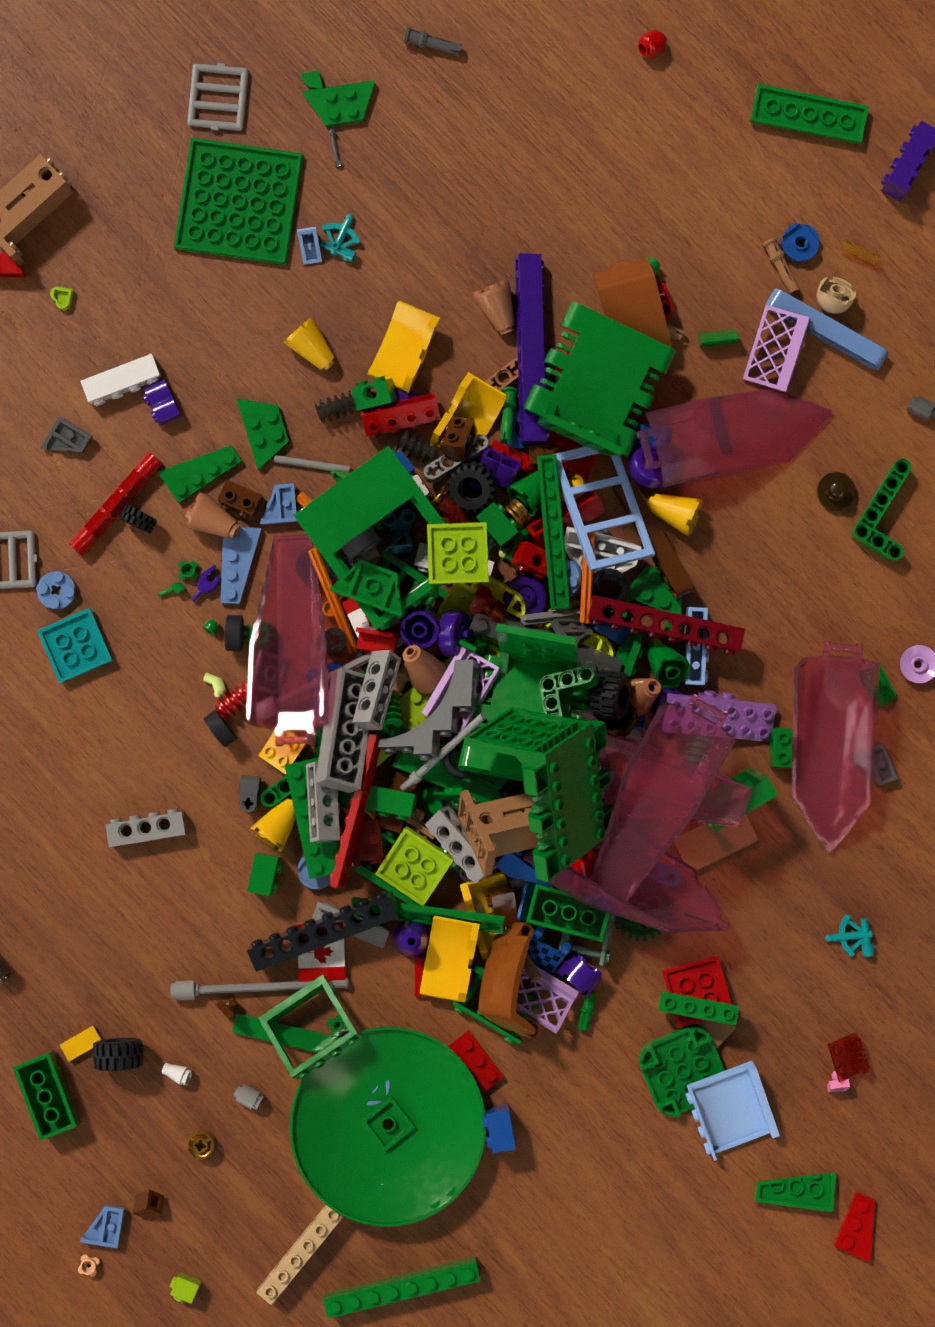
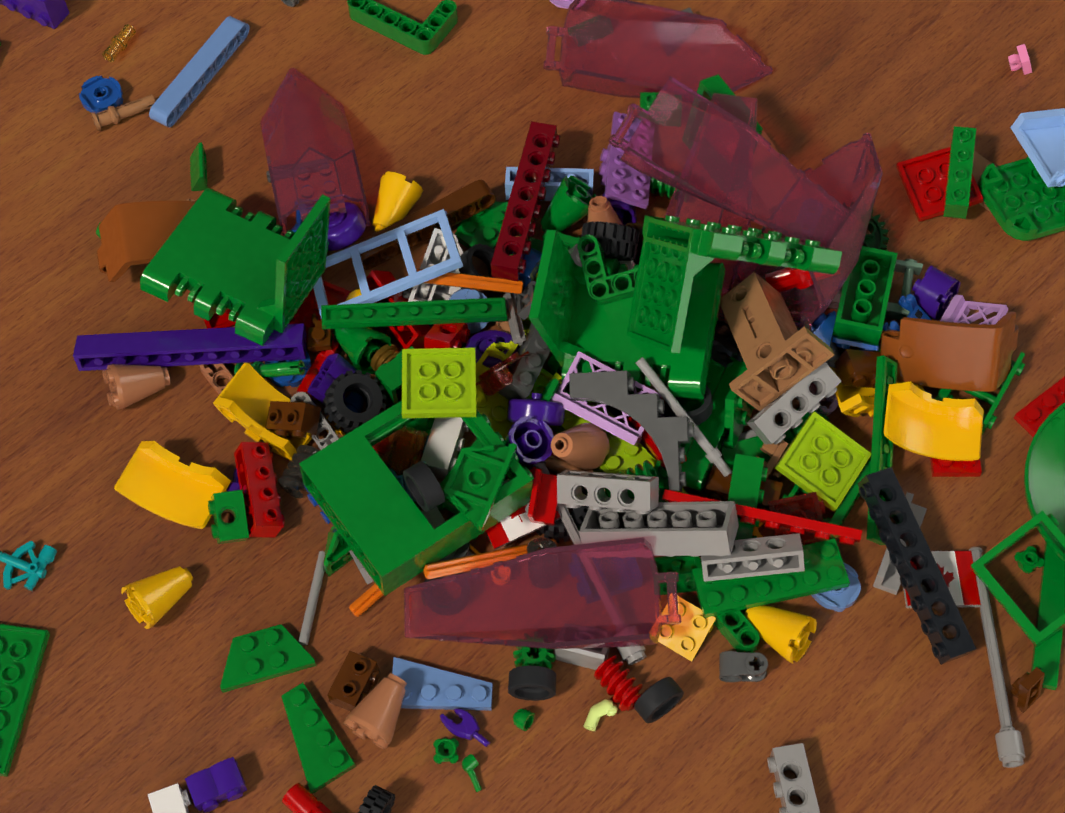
camera: 90 degrees left, 25 degrees down
(264, 874) = (847, 641): green brick -> none
(281, 505) = (365, 632): medium blue wing -> none
(309, 245) = (27, 599): light blue slope -> none
(335, 407) = (240, 564): clear smoke piece -> none
(407, 930) = (914, 470): dark purple cone -> none
(586, 1012) = (974, 292): green axle -> none
(793, 349) = (220, 92): lavender fence -> none
(835, 295) = (165, 60): tan cylinder -> none
(836, 491) = (378, 64): dark brown plate -> none
(848, 1057) = (991, 46): clear red hinge -> none
(862, 934) = (859, 40): teal piece -> none

